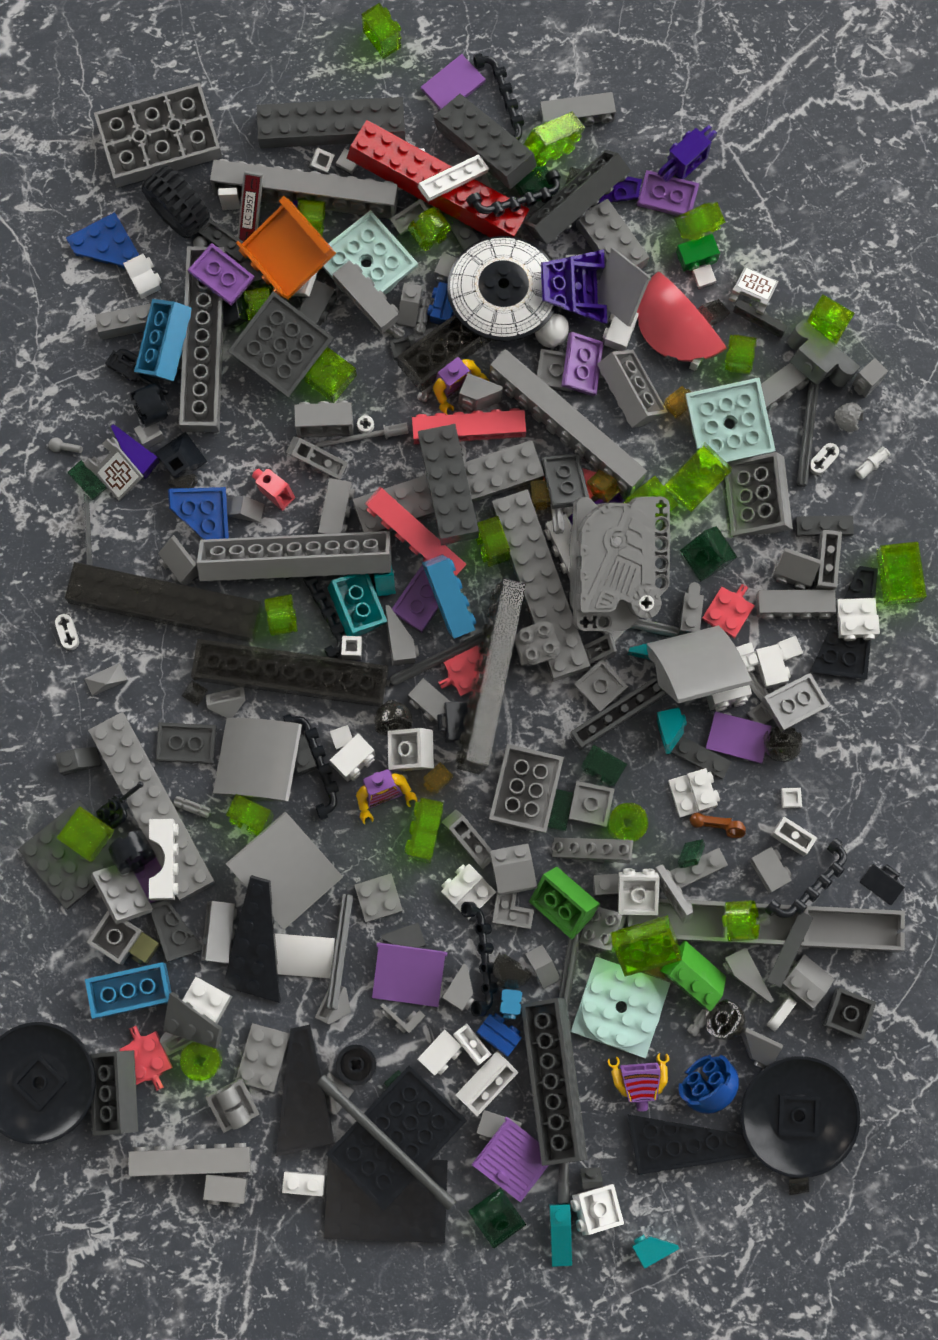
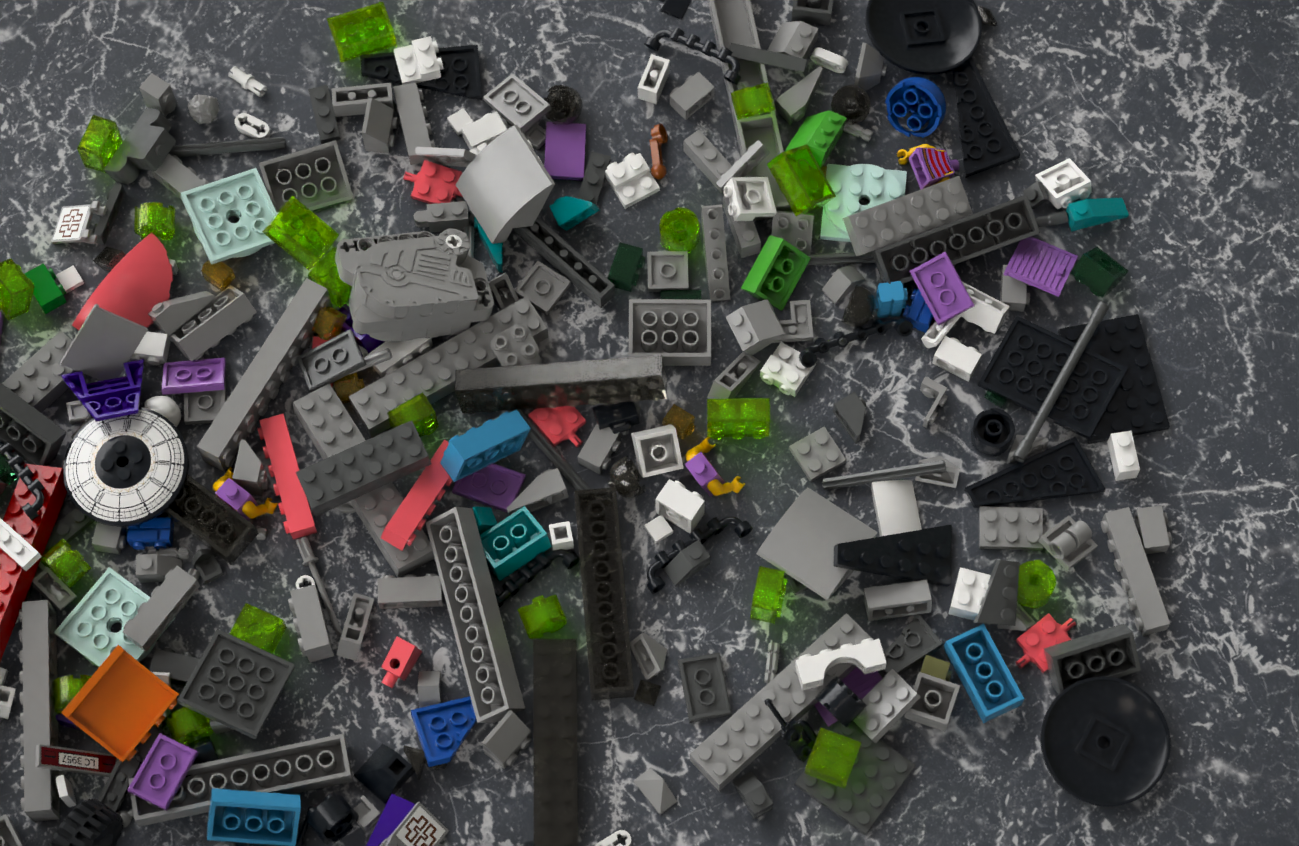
camera: 100 degrees left, 10 degrees down
(257, 759) = (707, 599): light grey slope -> none
(408, 974) = (888, 404): medium lavender piece -> none
(460, 990) = (889, 349): light grey slope -> none
(505, 1053) = (942, 288): none -> medium lavender tile
(589, 1041) = (907, 216): none -> light grey brick
(648, 360) = (177, 311): none -> light grey slope
(652, 1249) = (1086, 128): teal slope -> none
(691, 853) = (695, 164): clear green tile -> none
(708, 553) = (378, 212): clear green slope -> none
(746, 622) = (446, 156): none -> light grey tile
(791, 797) = (614, 92): white tile -> none

